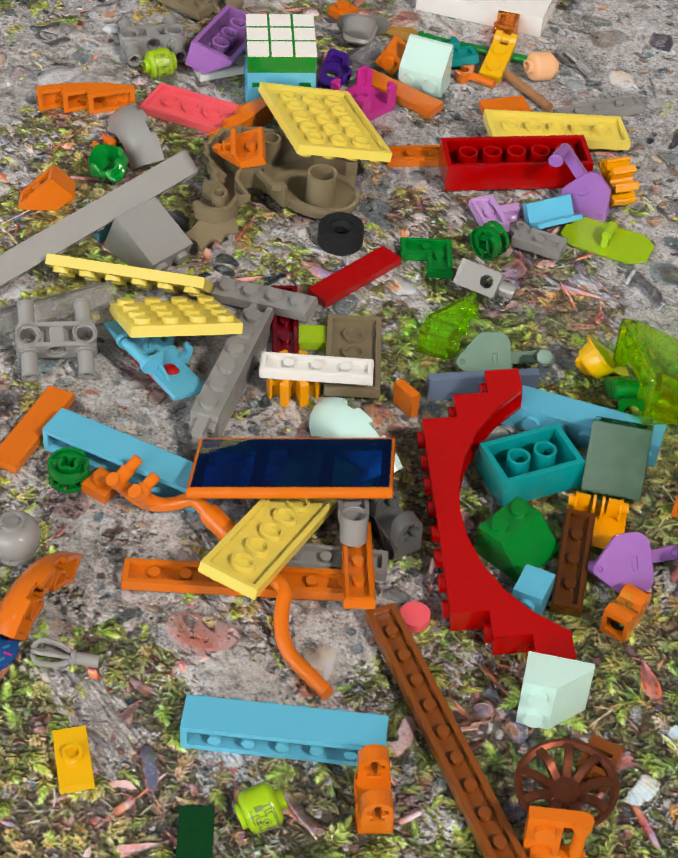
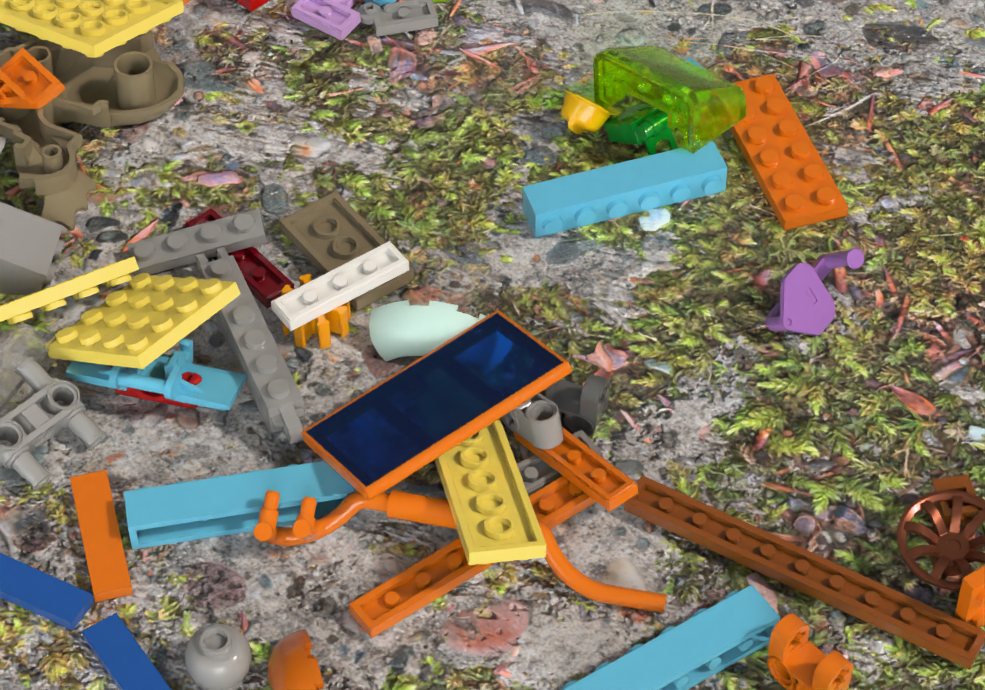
camera: 35 degrees left, 5 degrees up
(68, 467) = (201, 548): green wheel -> none
(96, 486) = (237, 547): orange plate -> none
(312, 337) = (284, 254): lime tile -> none
(340, 233) = (197, 137): black tyre -> none
(354, 276) = (256, 162): red tile -> none
(406, 398) = (444, 262): orange tile -> none
(416, 616) = (668, 473): coral tile -> none
(434, 251) = (309, 88): green tile -> none
(444, 327) = (408, 165): clear neon green slope -> none
(445, 385) = (497, 204): sand blue tile -> none
(470, 590) = (691, 416): red arch -> none
(473, 277) = (390, 91): light grey torso -> none
(488, 242) = (358, 43): green wheel -> none
(494, 352) = (486, 169): sand green piece -> none
(516, 538) = (687, 342): green slope -> none
(530, 464) = (629, 259): teal brick -> none
(534, 588) = (747, 383): medium azure brick -> none
(553, 690) = (856, 464): light aqua slope -> none
(573, 563) = (752, 331): reddish brown tile -> none
(609, 517) = (732, 278): light orange hinge -> none
(617, 459) = (705, 201): slope -> none
(625, 609) = (841, 346): orange leg -> none

